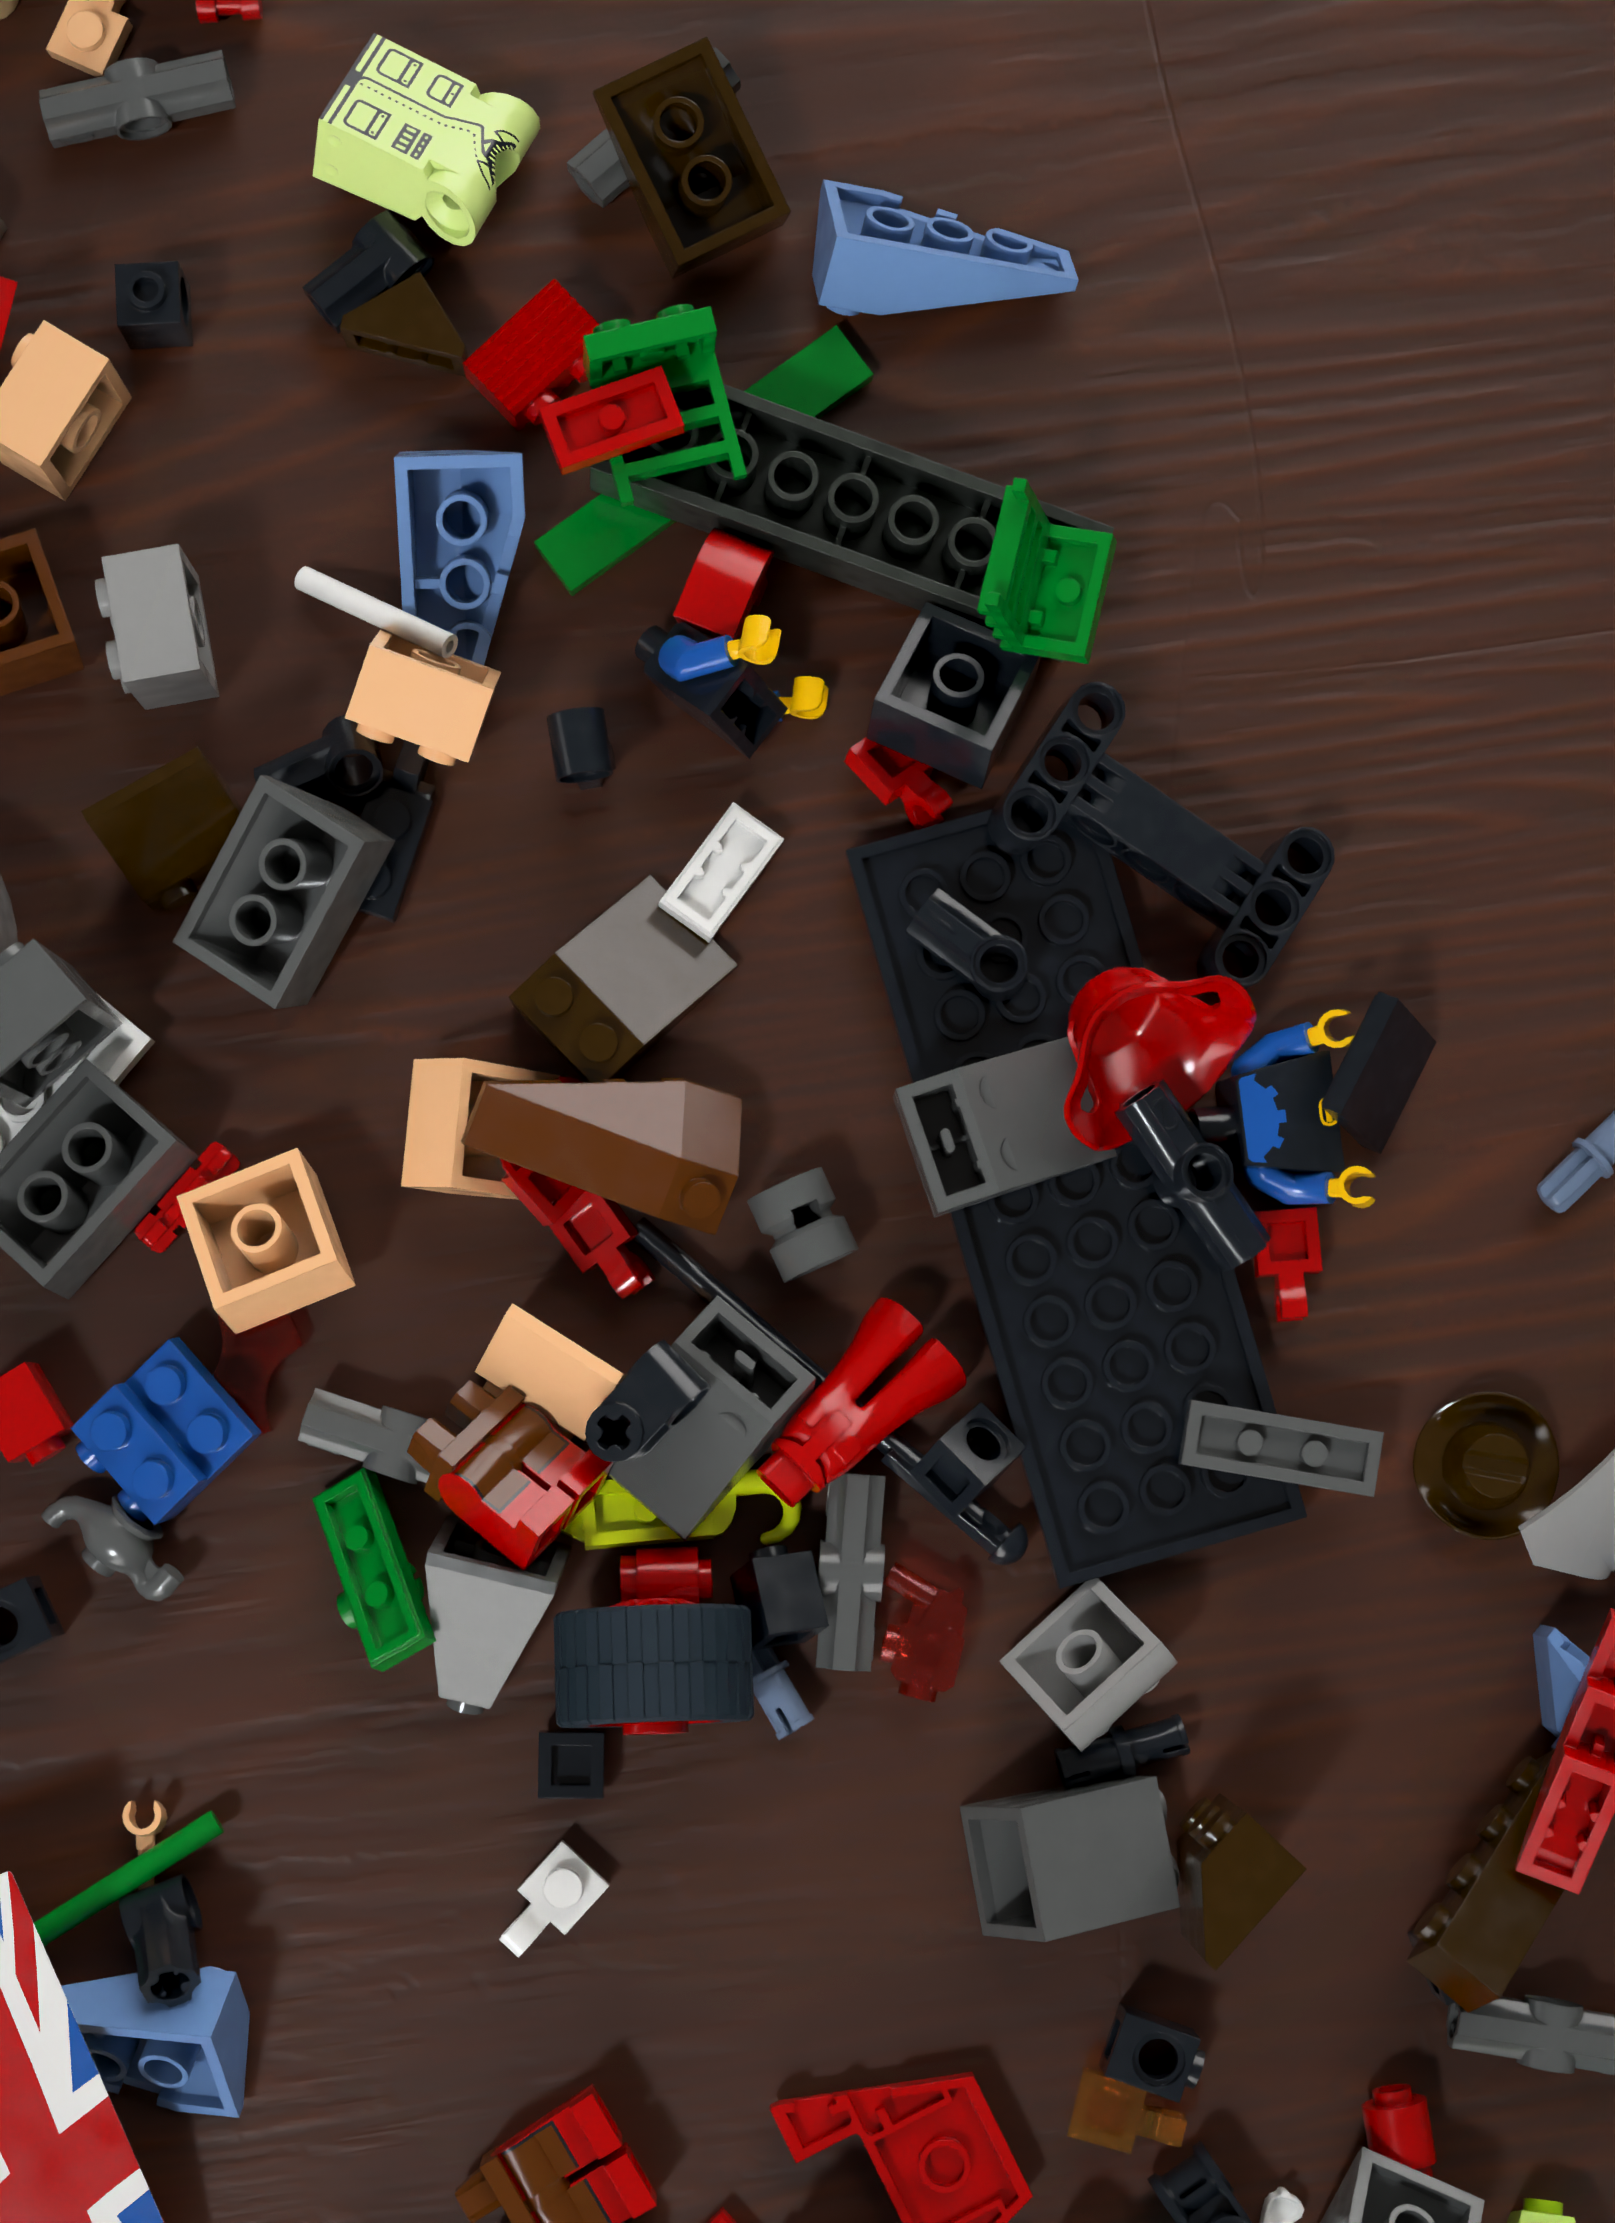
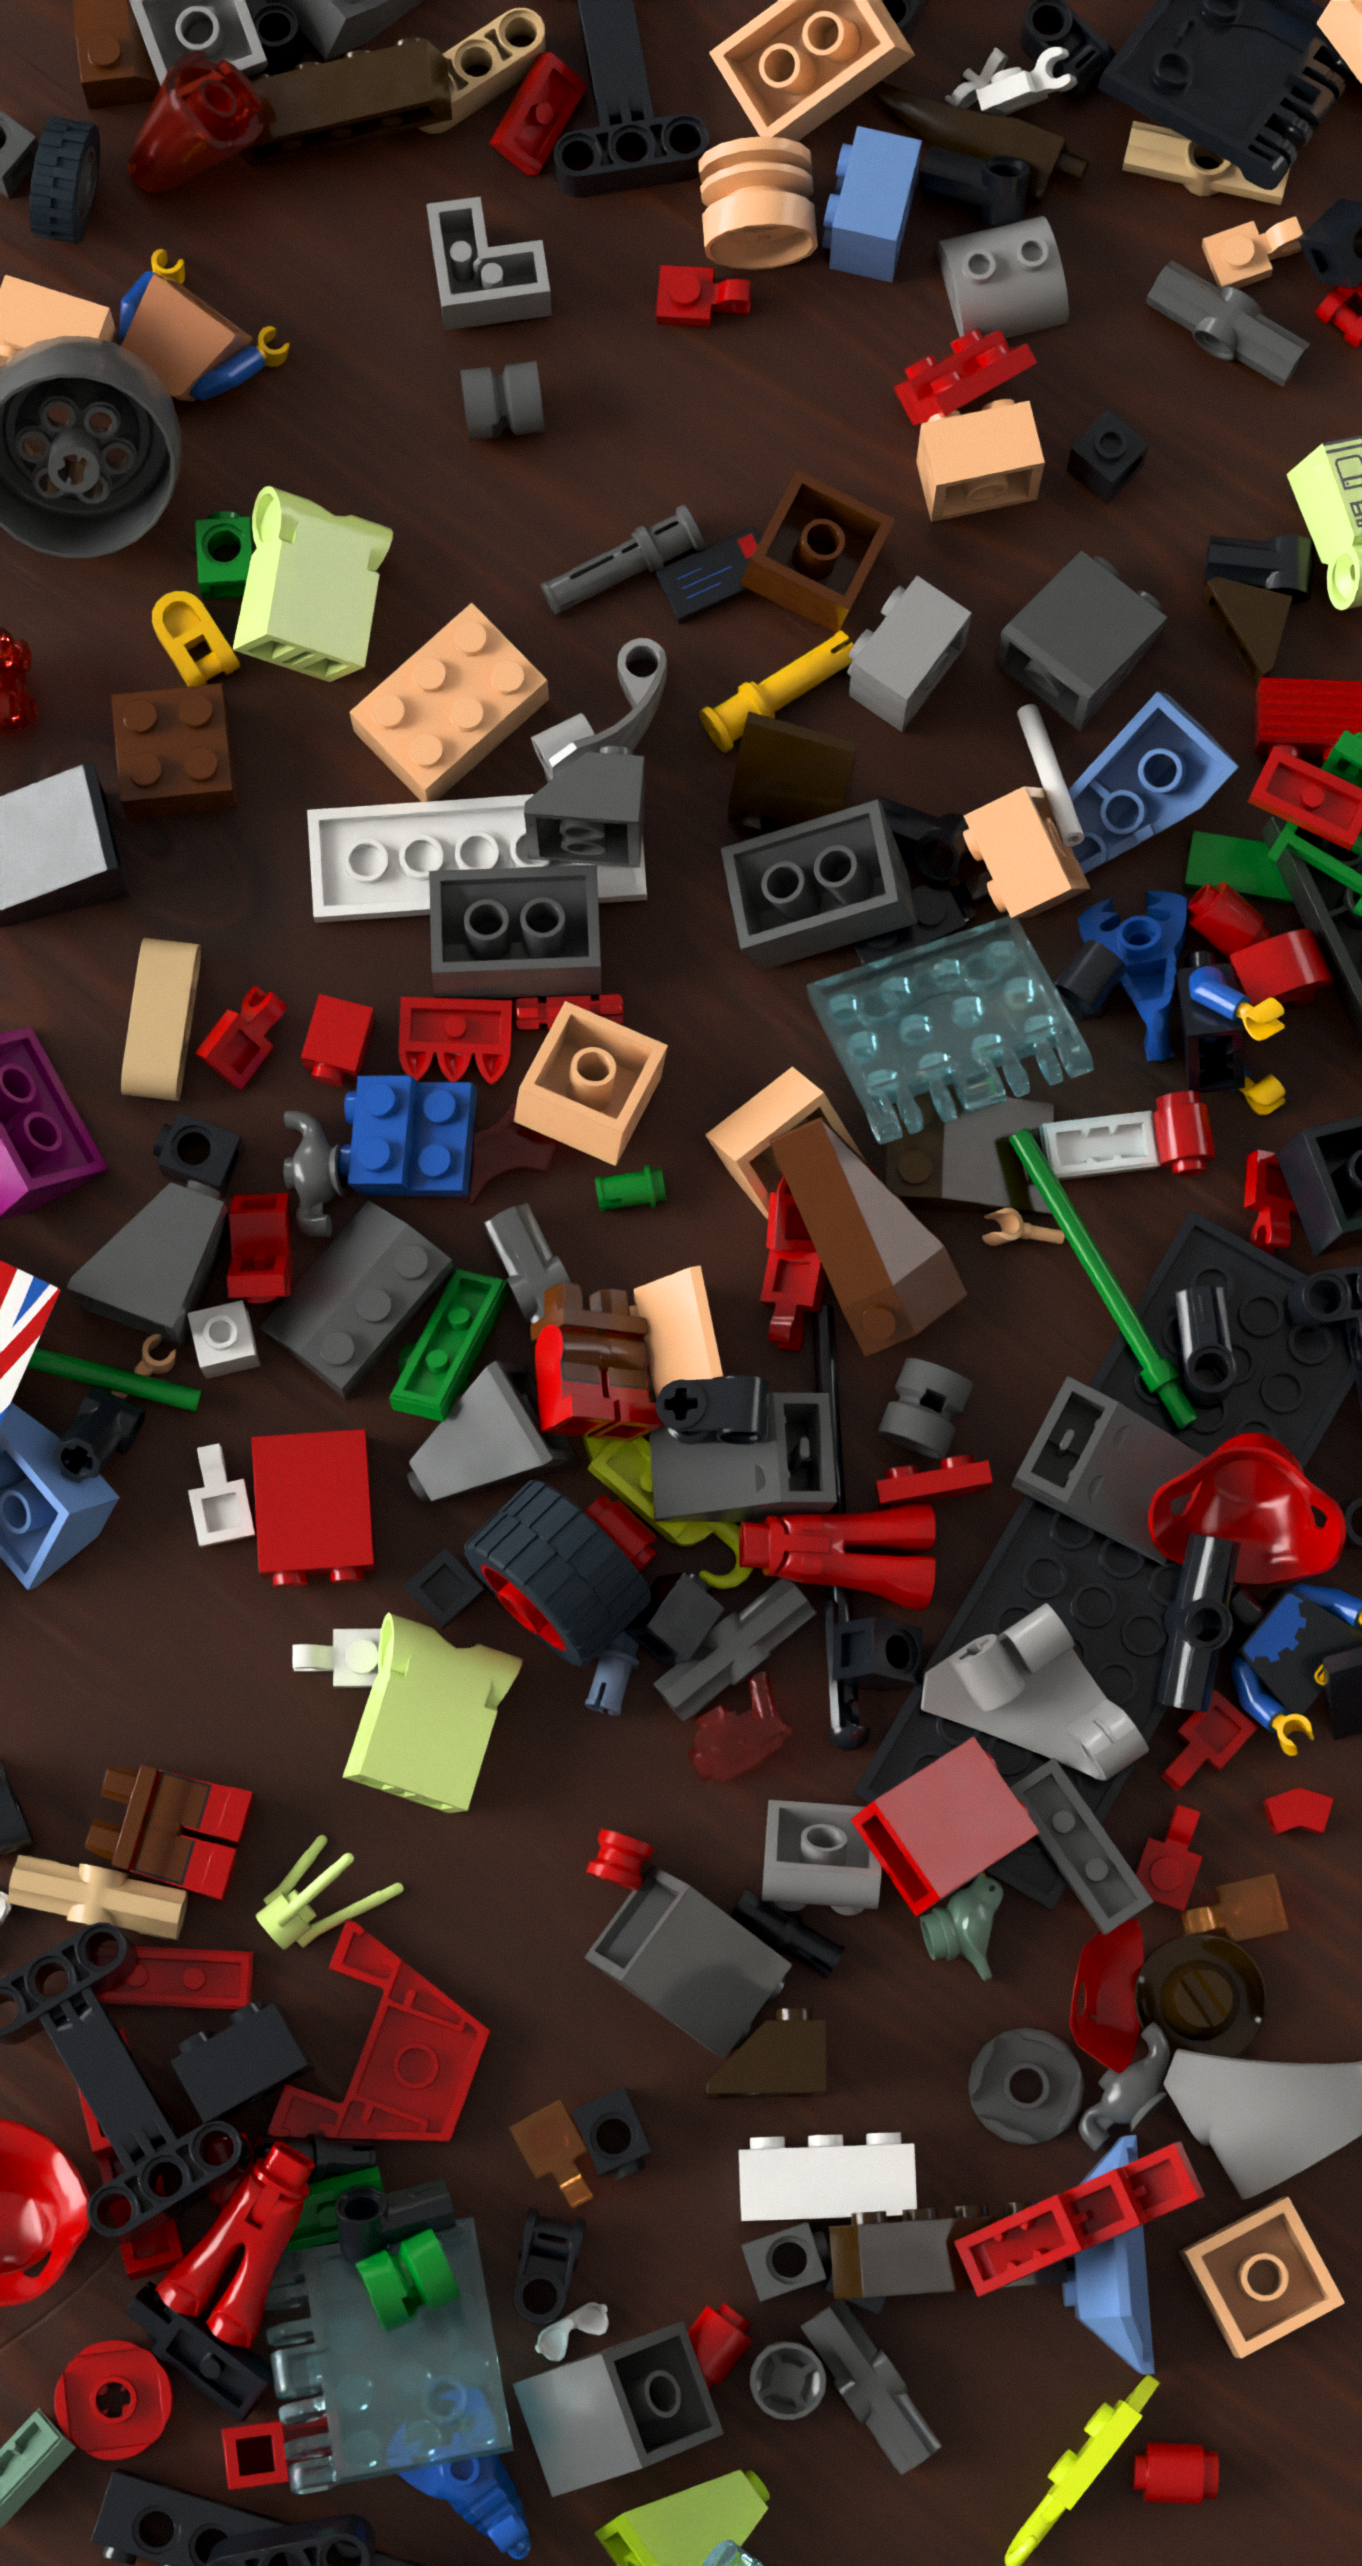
camera: 55 degrees right, 5 degrees down
(68, 1749) = (158, 1263): none -> dark grey slope
(80, 784) = (728, 719): none -> yellow pin
(114, 1311) = (455, 1034): none -> red plate
(138, 1649) = (260, 1247): none -> red brick
(185, 1752) = (224, 1339): none -> white brick
(258, 1606) = (358, 1298): none -> dark grey slope
(284, 476) = (1080, 638): none -> dark grey slope
(325, 1889) = (221, 1507): none -> white plate
(386, 1289) = (631, 1189): none -> green pin
(400, 1810) = (313, 1507): none -> red brick
(497, 897) = (946, 1019): none -> clear light blue hinge
(602, 676) = (1150, 952): none -> blue animal
(636, 587) = (1226, 919): none -> red brick
(668, 1882) = (429, 1716): none -> yellowish green piece
(721, 2152) = (289, 1914): none -> yellowish green plant
(722, 1006) = (1015, 1228): none -> light nougat hand
(777, 794) = (1183, 1133): none -> red brick
(882, 1252) = (956, 1478): none -> red plate
(934, 1833) = (620, 1859): none -> red wheel
(956, 1007) = (1158, 1372): none -> green bar
(1125, 1362) = (1035, 1695): none -> light grey panel
(1167, 1546) = (945, 1825): none -> brick
(1250, 1598) = (964, 1924): none -> sand green animal
(1352, 1911) = (826, 2178): none -> white brick
(1357, 1388) = (1167, 1866): none -> red plate
(1386, 1664) = (1060, 2081): none -> dark grey tile
(1389, 2037) = (764, 2276): none -> dark grey brick
(1401, 1521) = (1109, 1975): none -> red piece
(1410, 1238) = (1299, 1810): none -> red piece
(1450, 1358) = (1245, 1908): none -> clear orange plate
(1485, 2102) = (787, 2380): none -> dark grey wheel
(1511, 1594) = (1131, 2095): none -> dark grey piece

